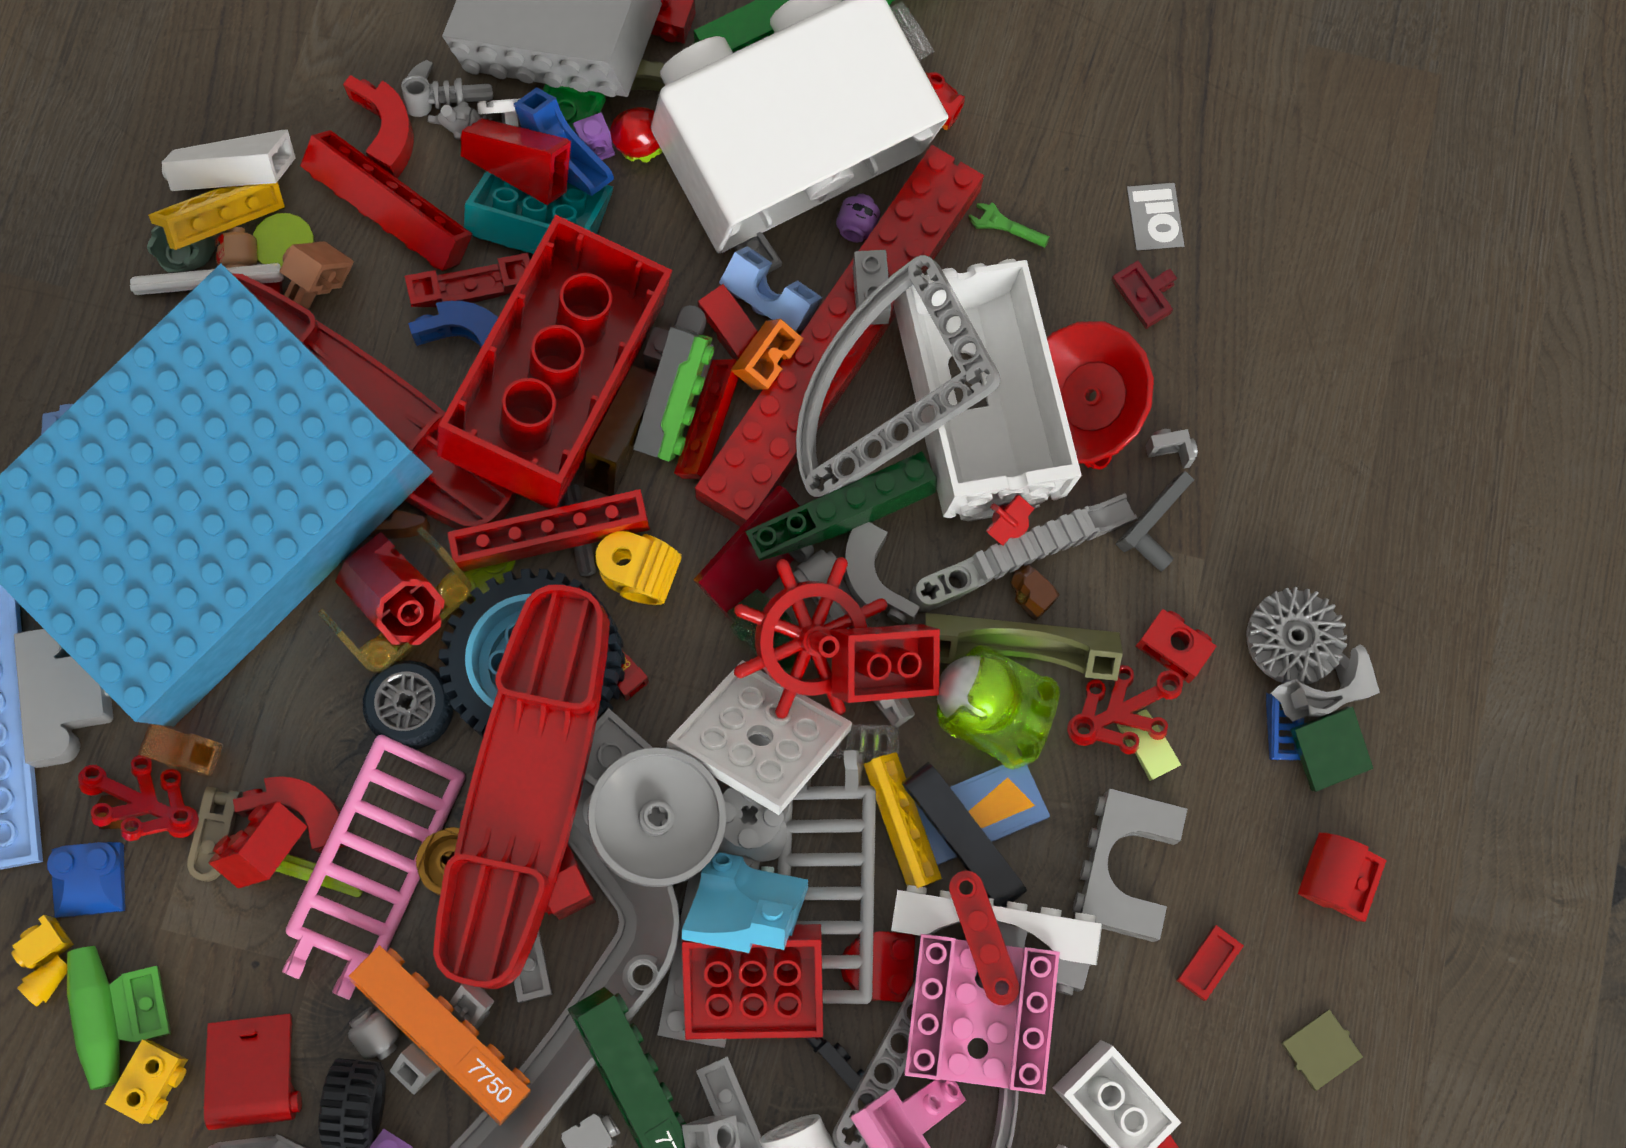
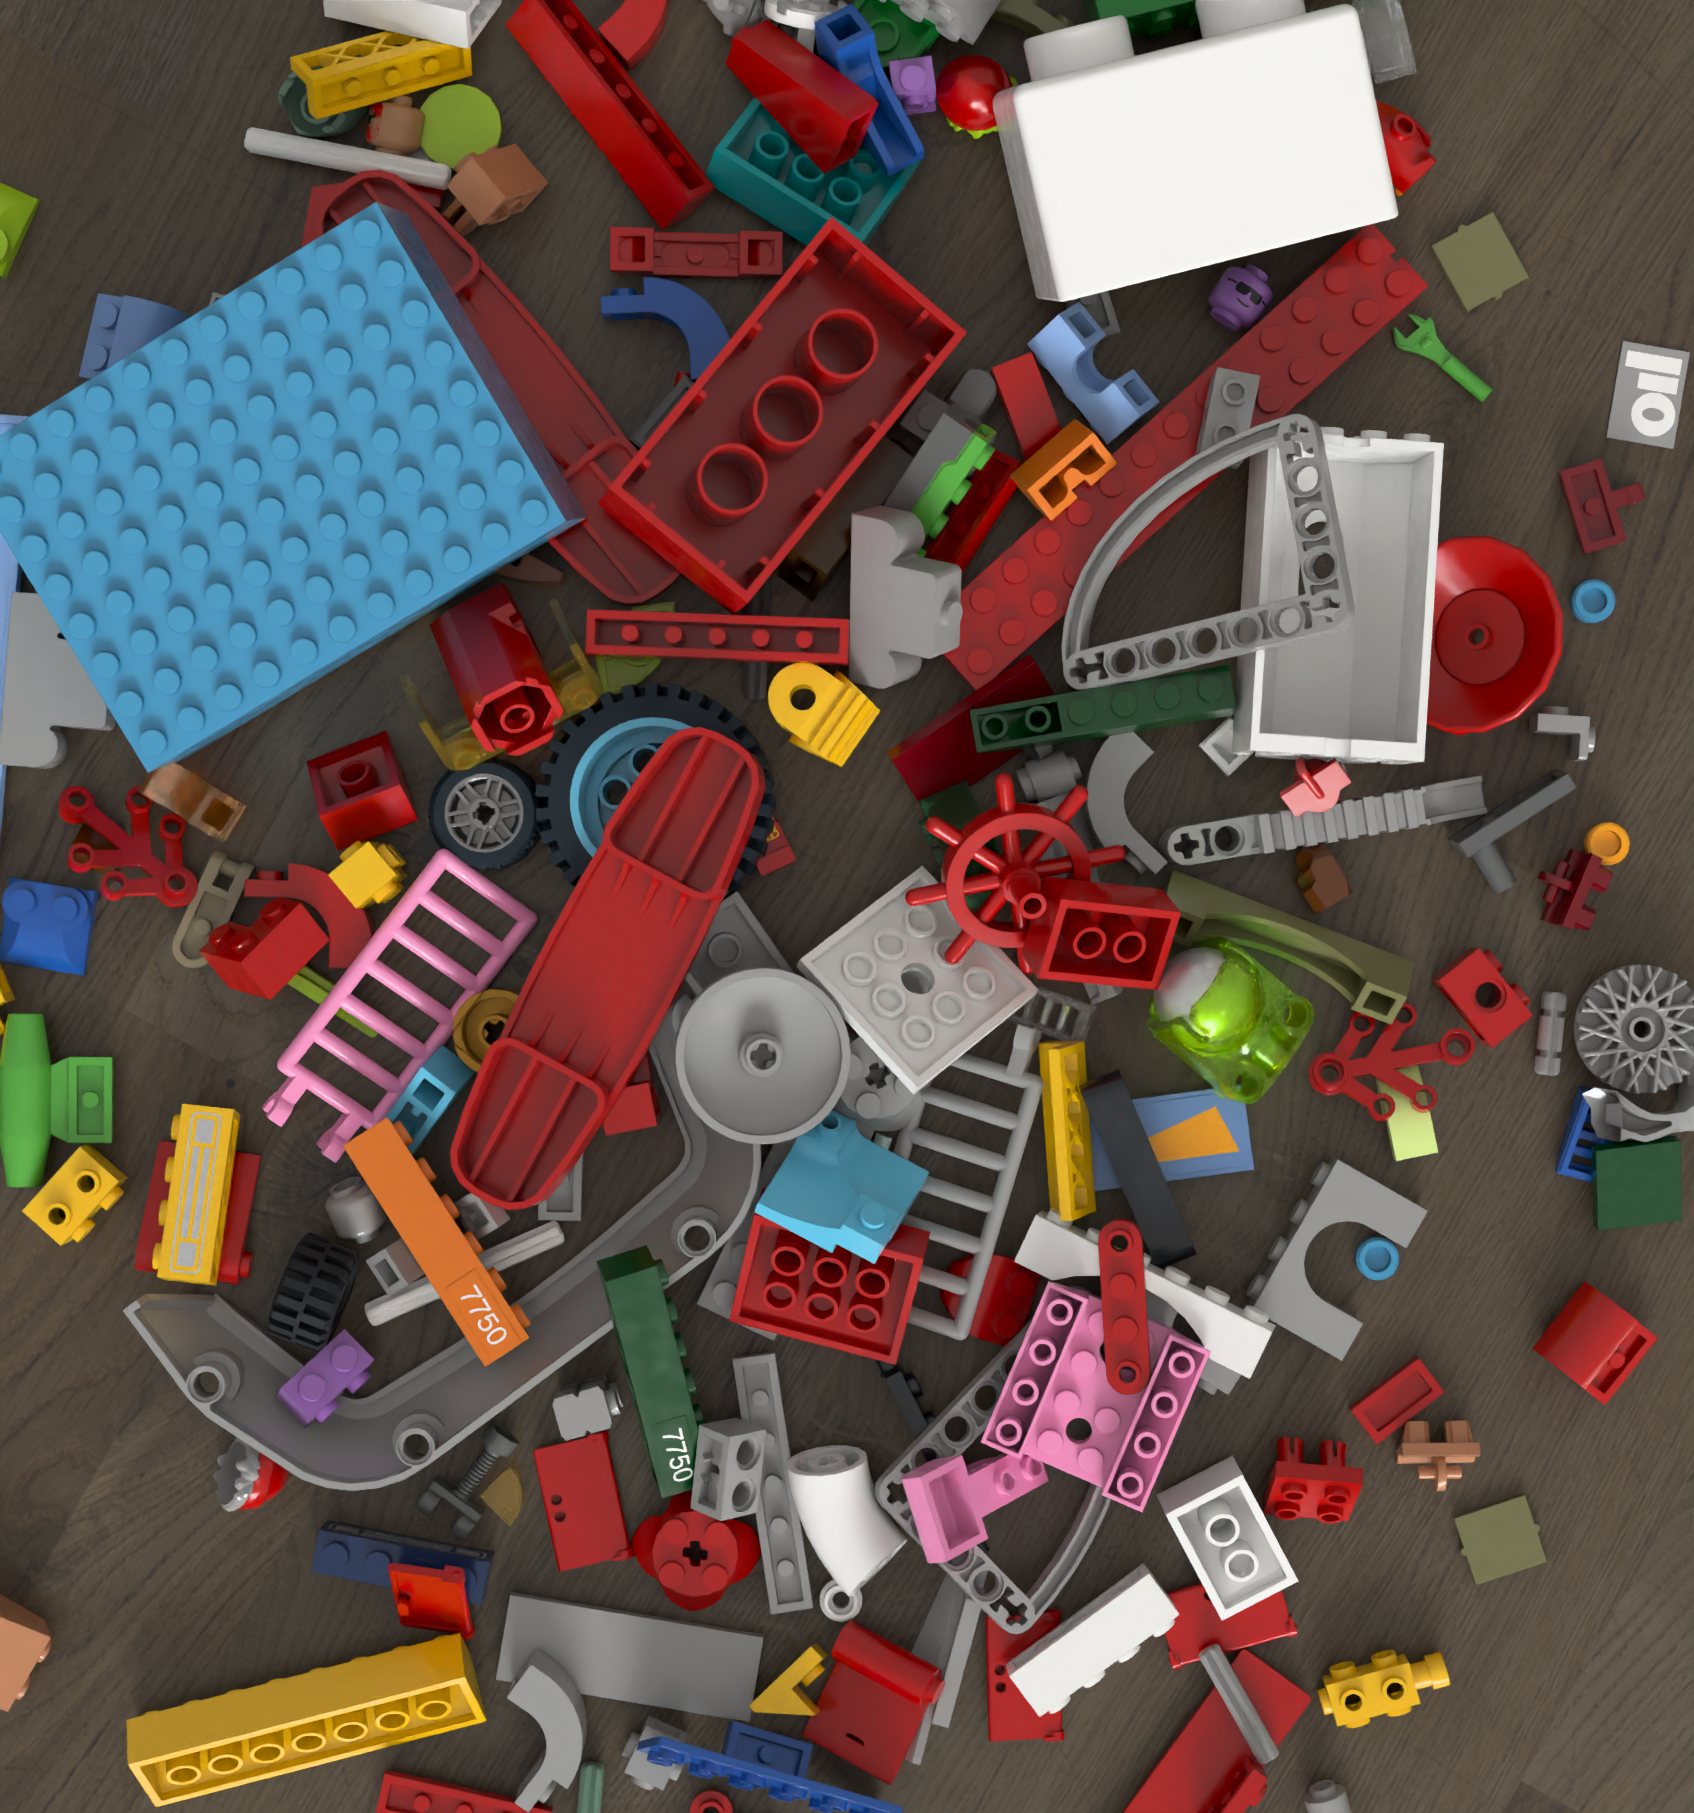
camera: 20 degrees right, 15 degrees up
(243, 1052) = (197, 1194): none -> yellow brick
(310, 714) = (361, 791): none -> red slope
(328, 769) = (369, 873): none -> yellow brick
(412, 926) = (430, 1095): none -> medium azure slope
(443, 1084) = (500, 1256): none -> white axle
(673, 470) = (898, 600): none -> light grey brick
(935, 523) = (1219, 748): none -> white tile
(1014, 160) = (1479, 262): none -> olive piece
(1161, 859) = (1376, 1258): none -> dark azure tile
(1163, 357) = (1592, 601): none -> dark azure tile
(1168, 1045) = (1312, 1489): none -> red plate
(1212, 553) = (1569, 888): none -> dark red hips
(1228, 517) = (1608, 842): none -> light orange tile
(1233, 660) = (1550, 1033): none -> light grey axle
(1253, 997) = (1457, 1448): none -> nougat hips

